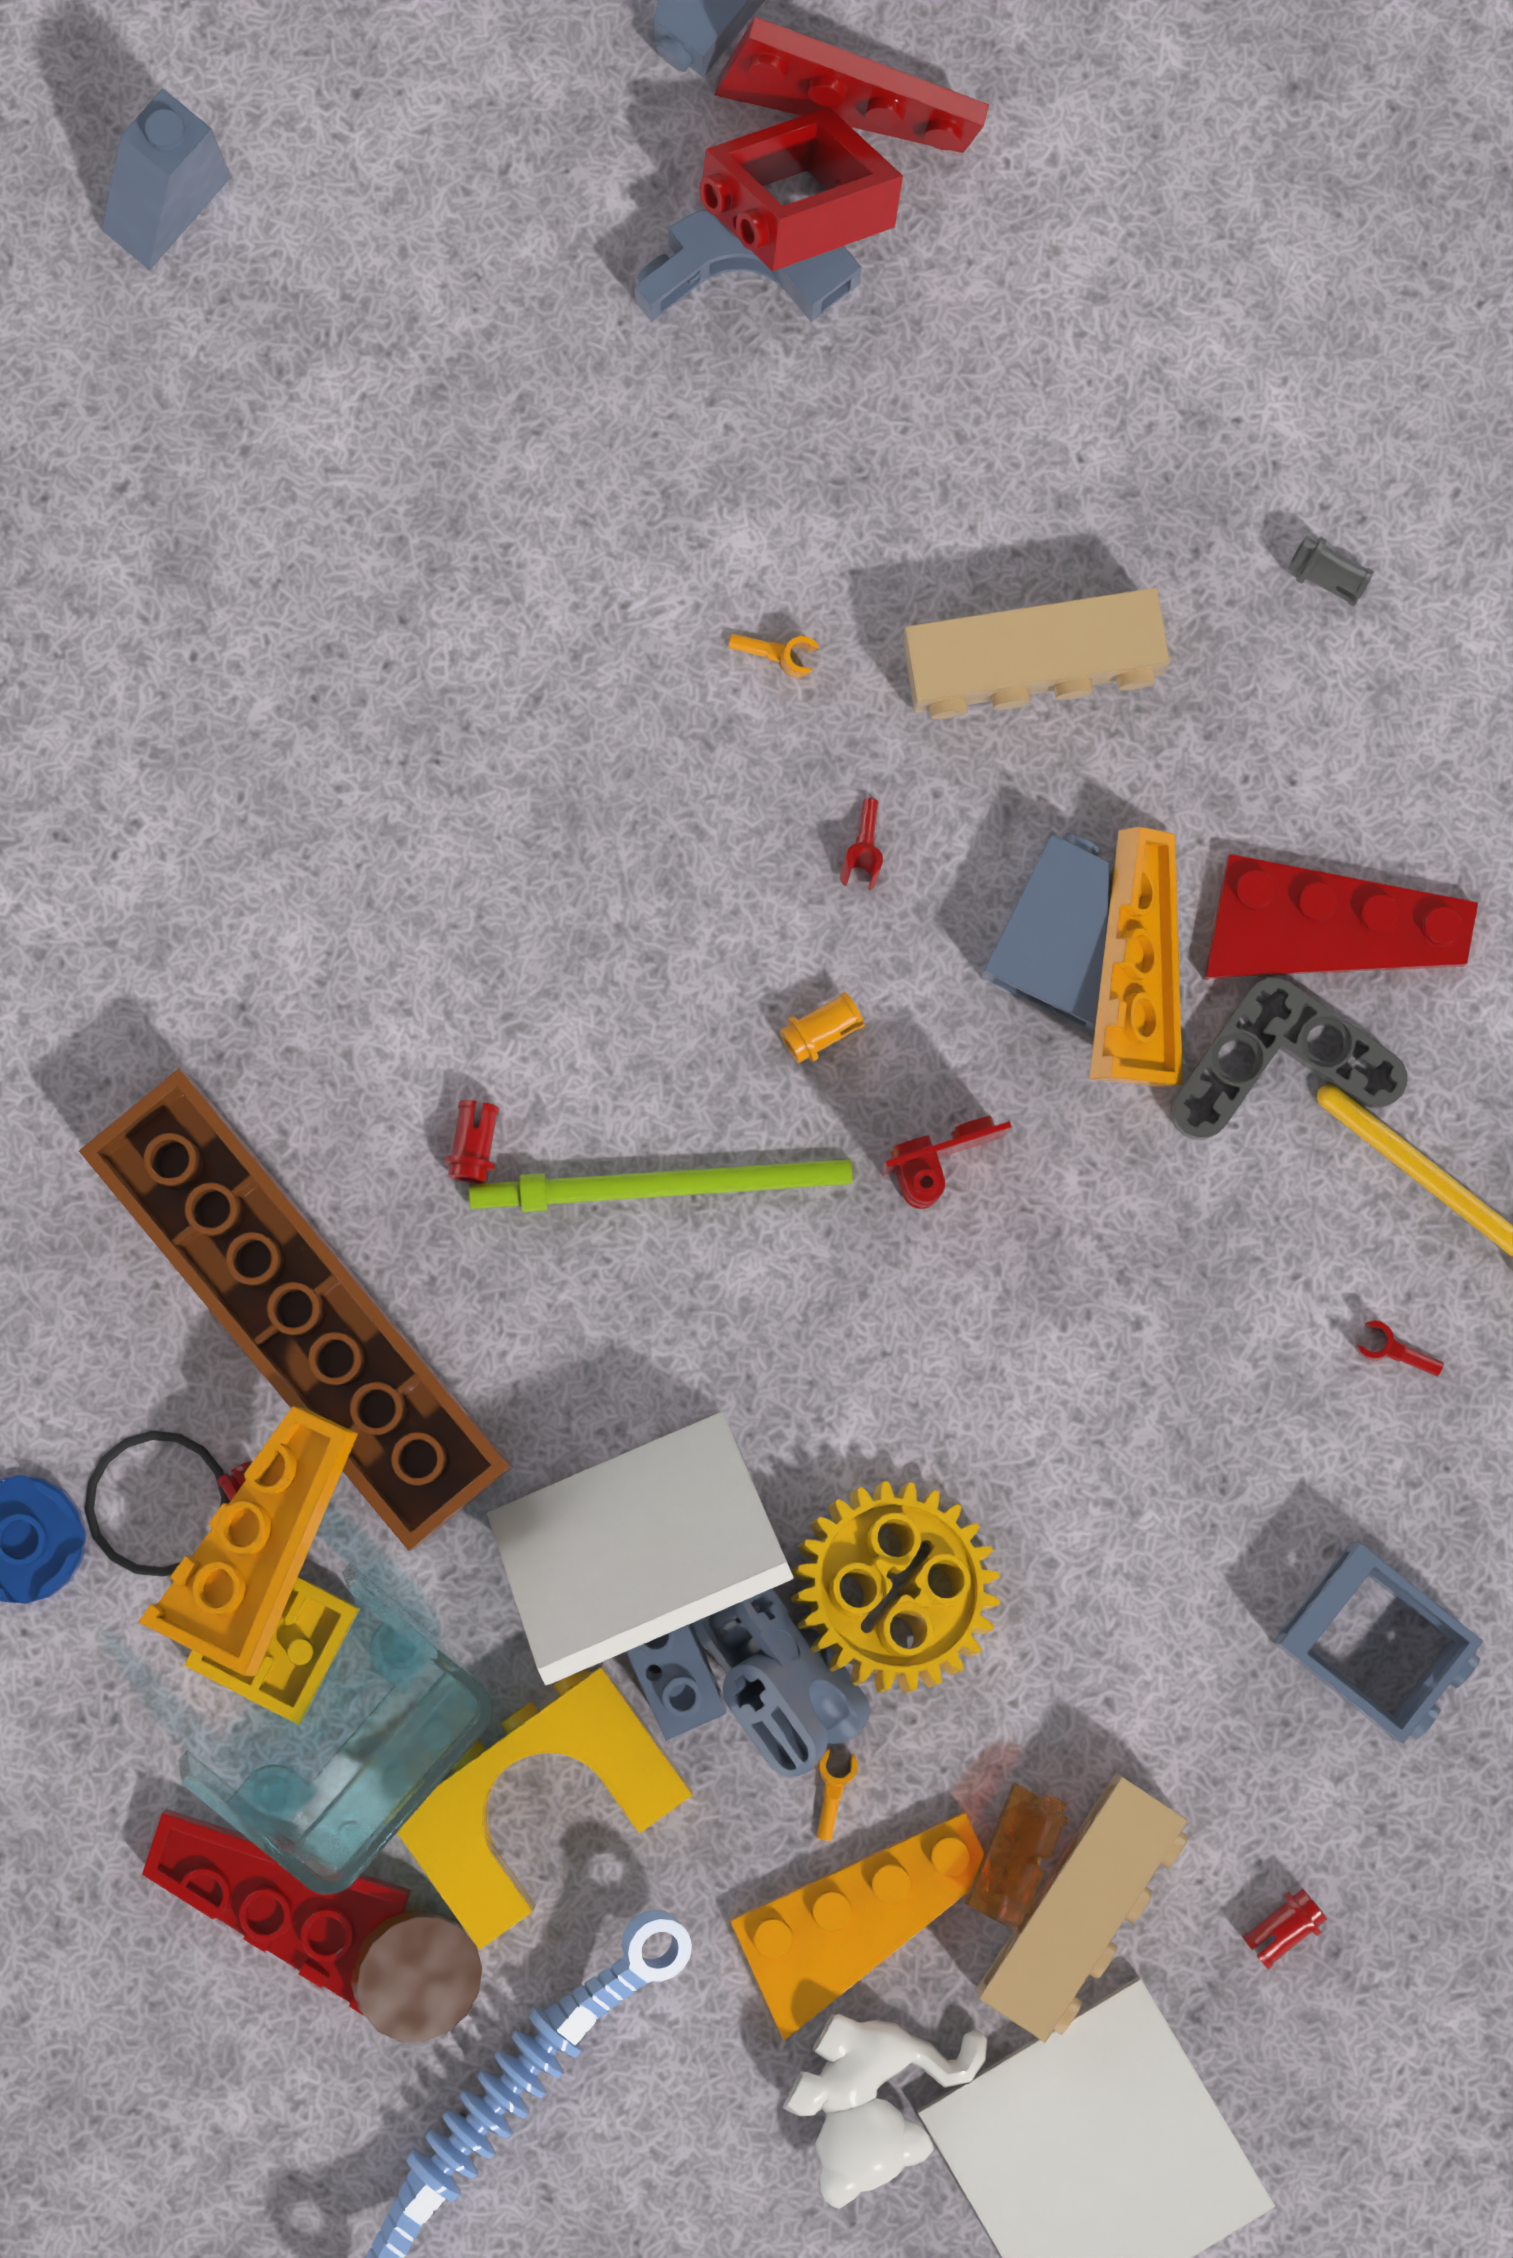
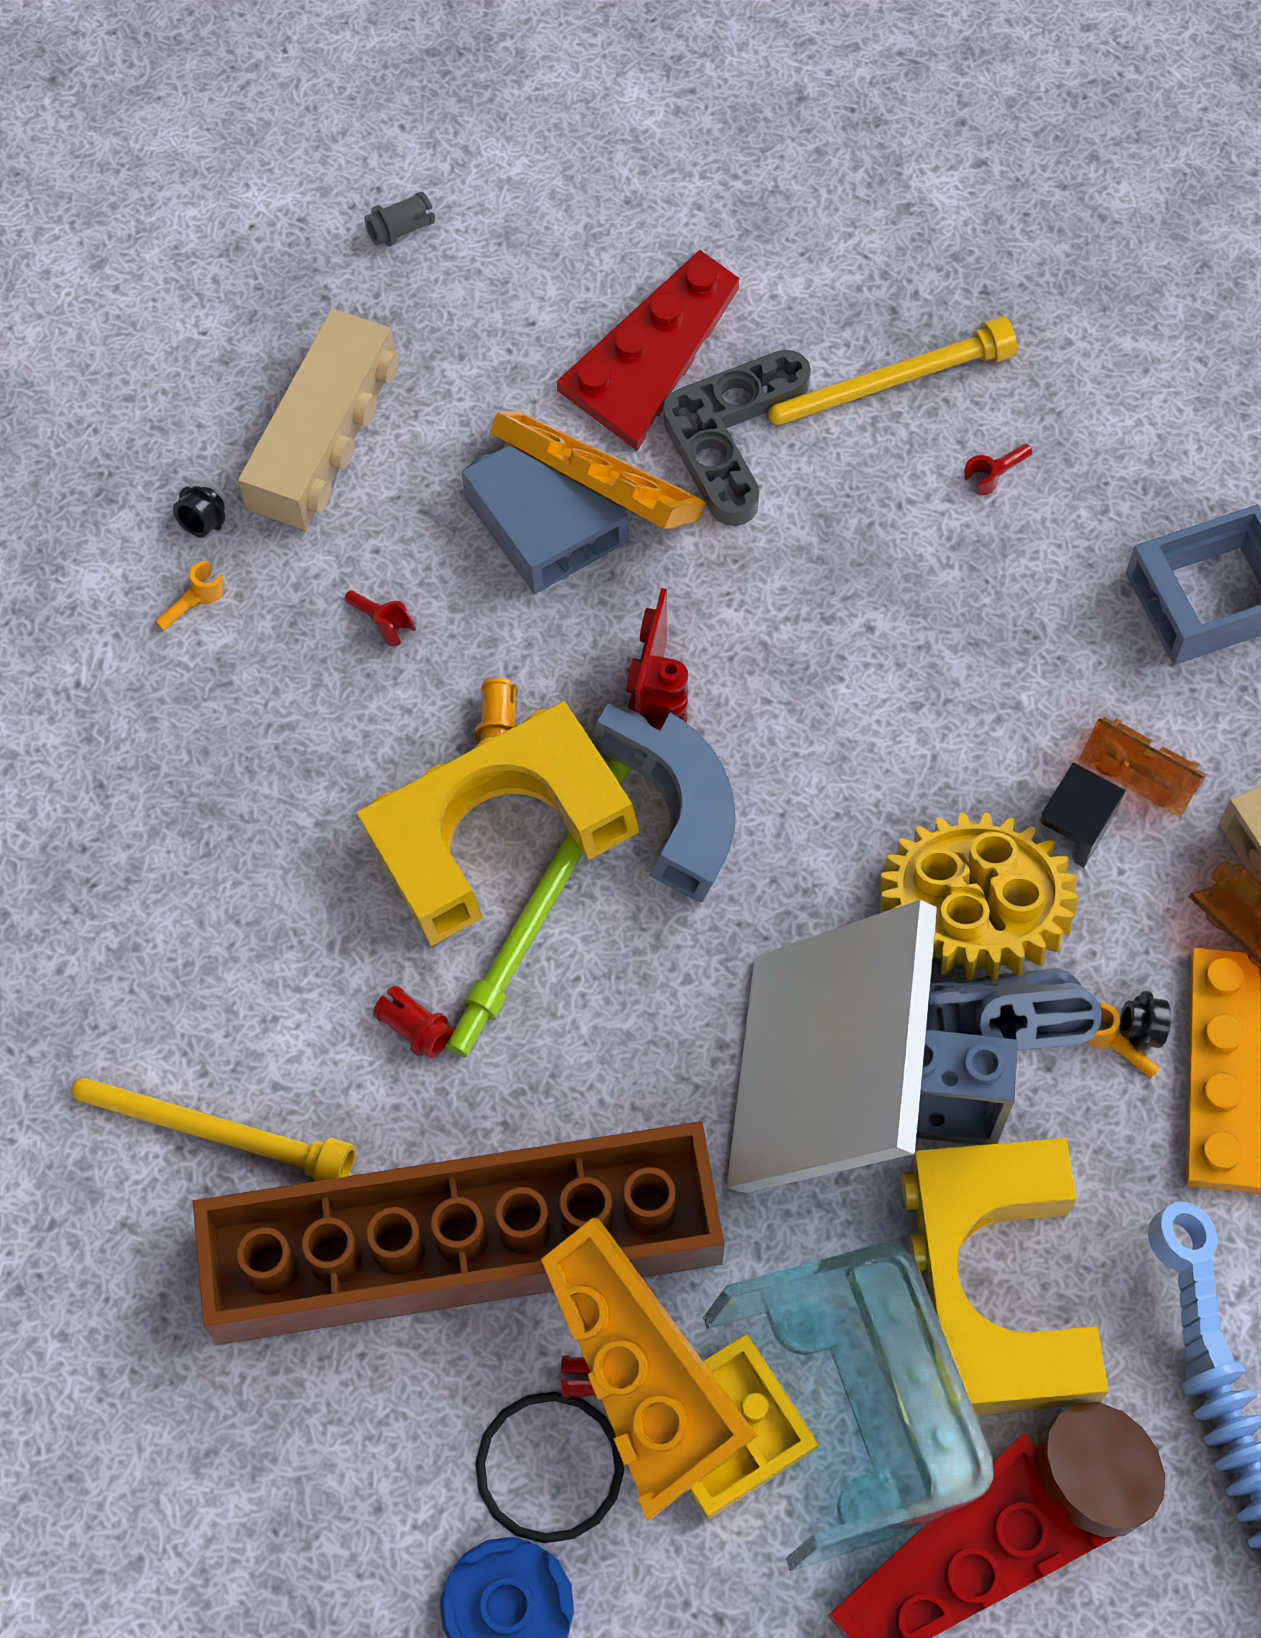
camera: 55 degrees left, 20 degrees down
(299, 1145) = (320, 1160): none -> yellow piece
(655, 1026) = (538, 758): none -> yellow arch
(840, 1274) = (692, 786): none -> sand blue arch
(862, 1806) = (1146, 1021): none -> black plate
(871, 598) = (199, 510): none -> black plate
(1040, 1637) = (1082, 809): none -> black panel
(1131, 1698) = (1132, 762): none -> clear orange hinge

